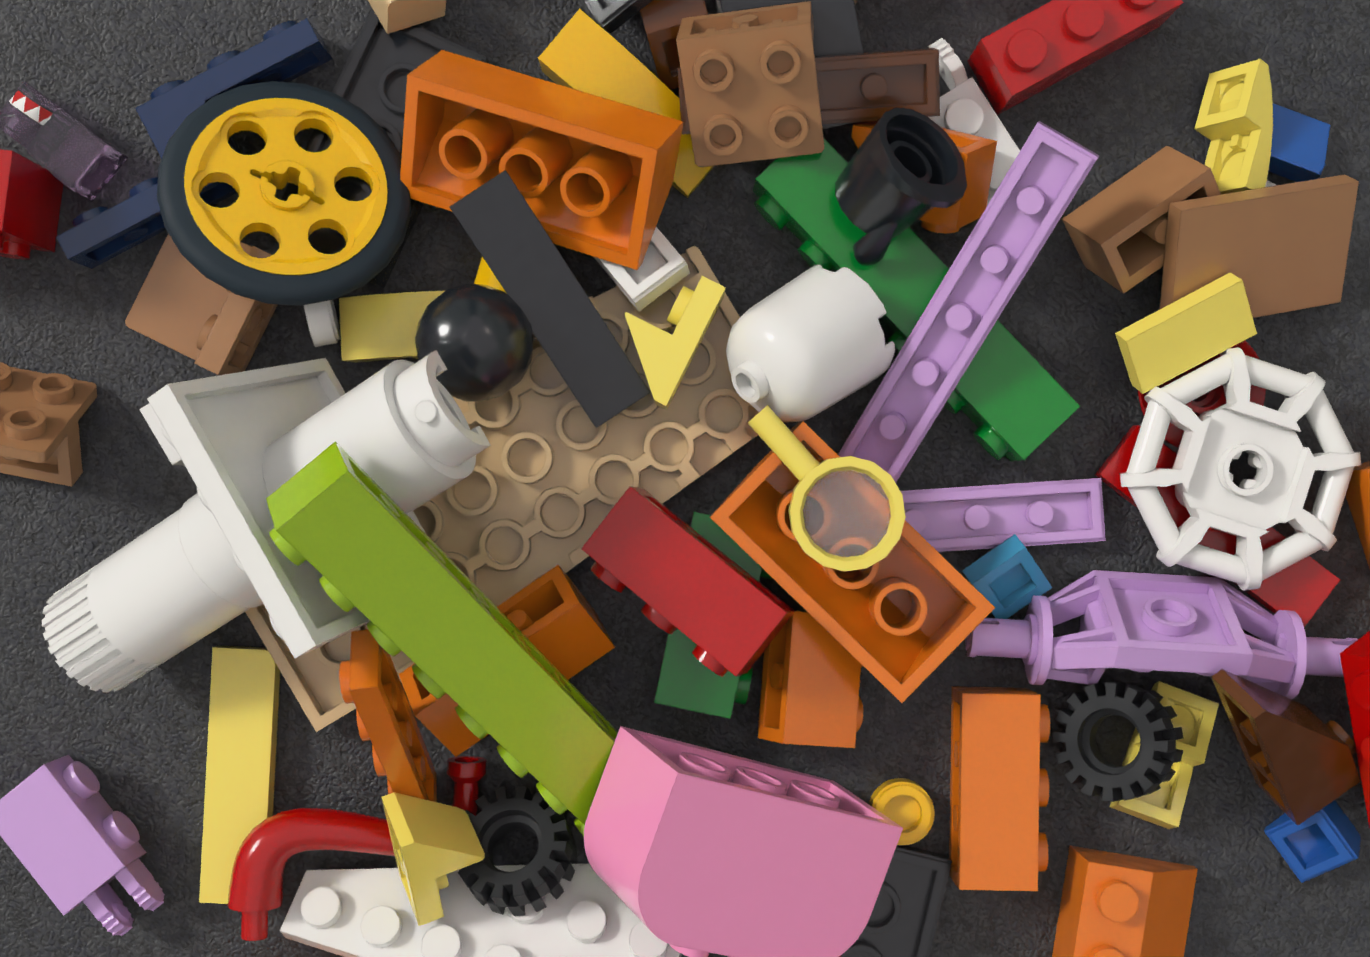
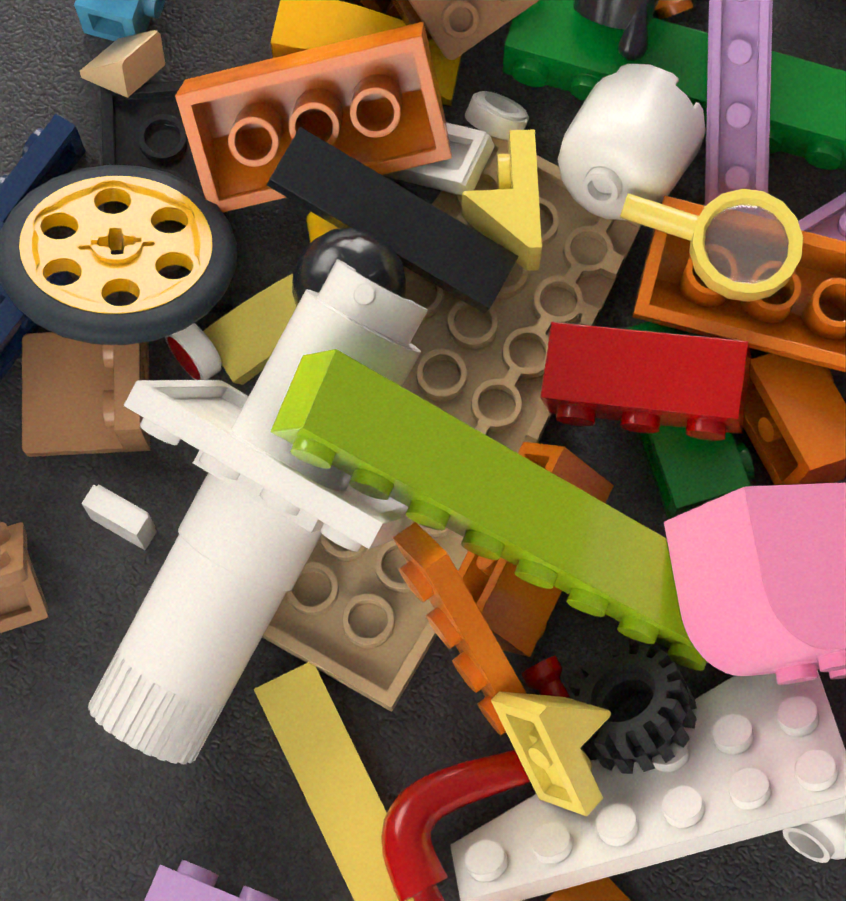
camera: 30 degrees left, 15 degrees down
(715, 238) = (495, 114): none -> white tile

